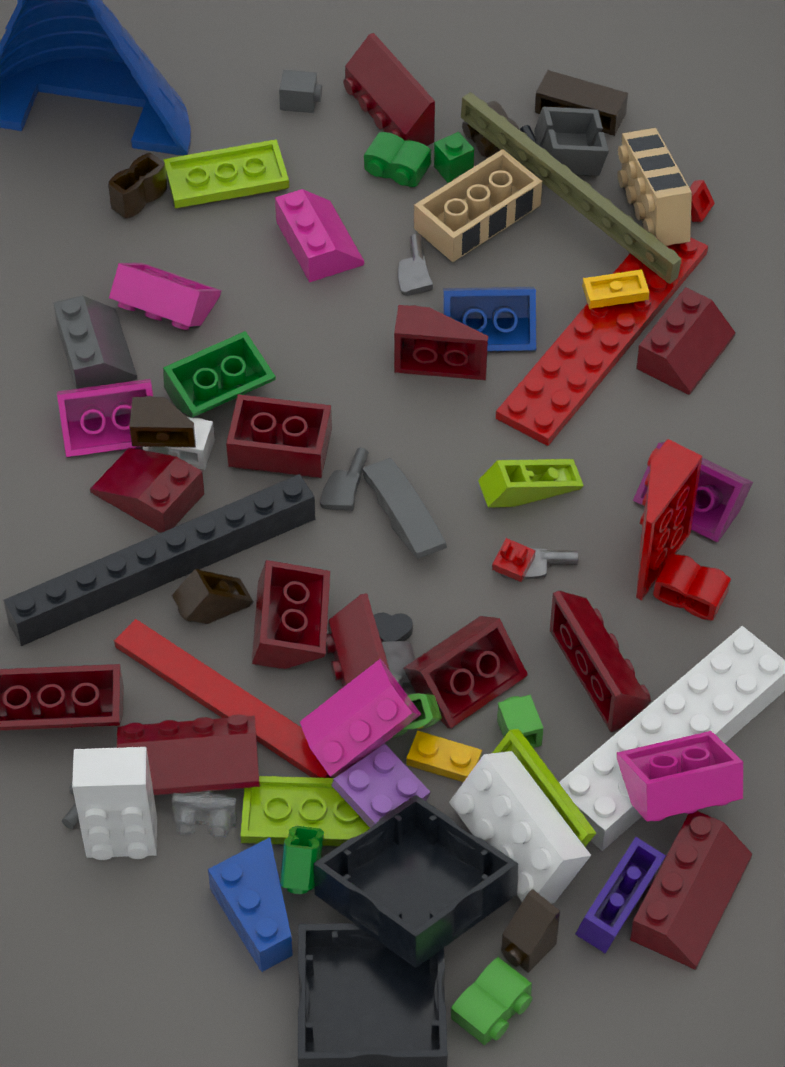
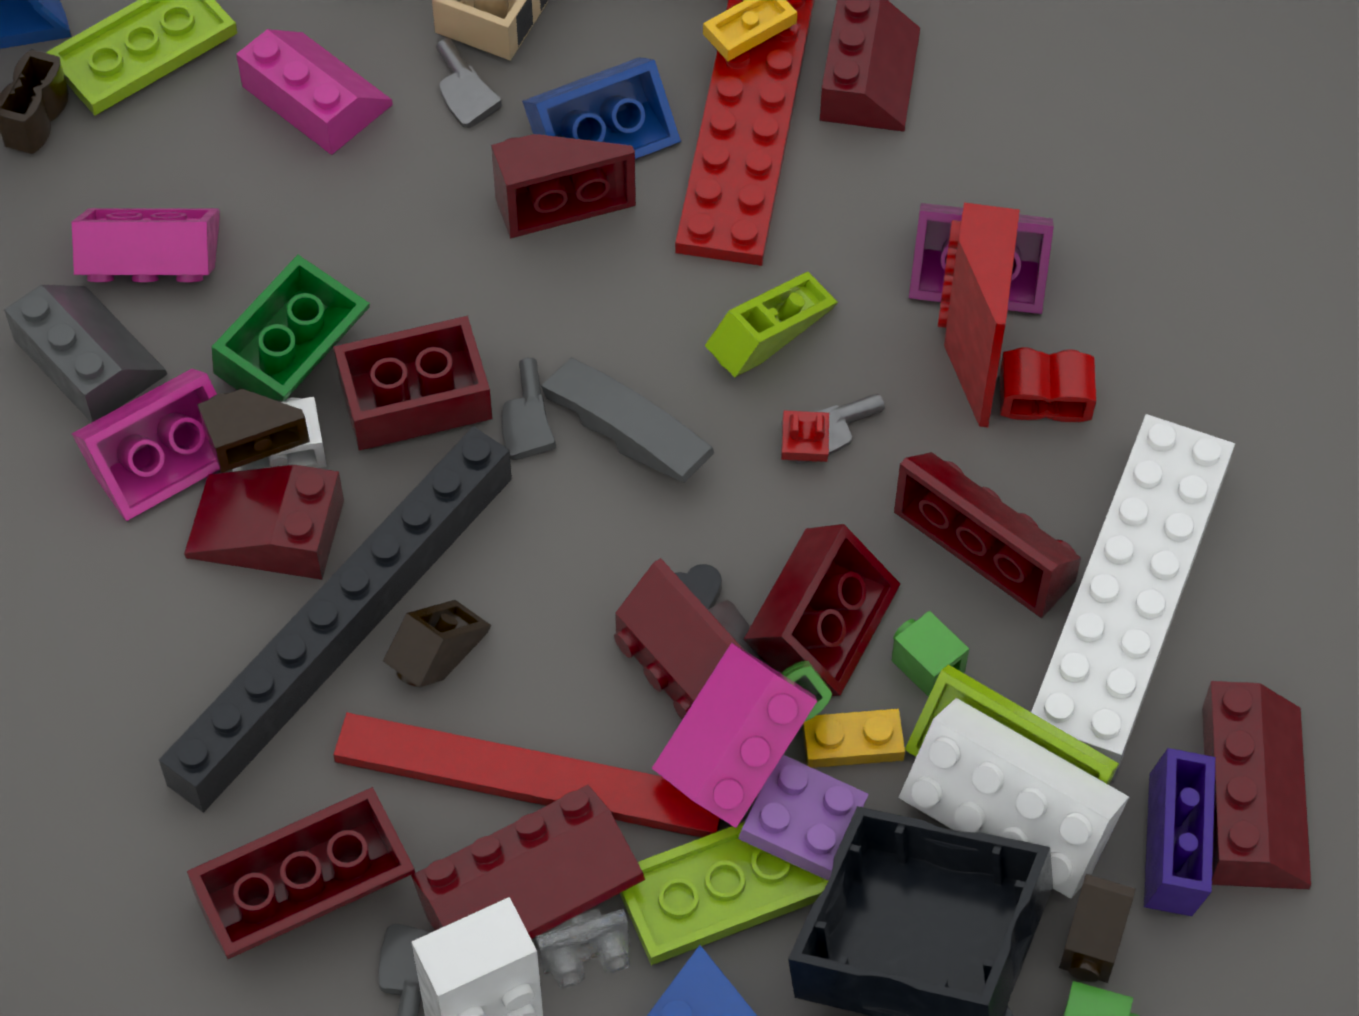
camera: 25 degrees left, 5 degrees up
(290, 615) = (558, 626): dark red slope -> none
(299, 854) = (756, 956): green brick -> none
(681, 776) = (1184, 643): dark pink slope -> none

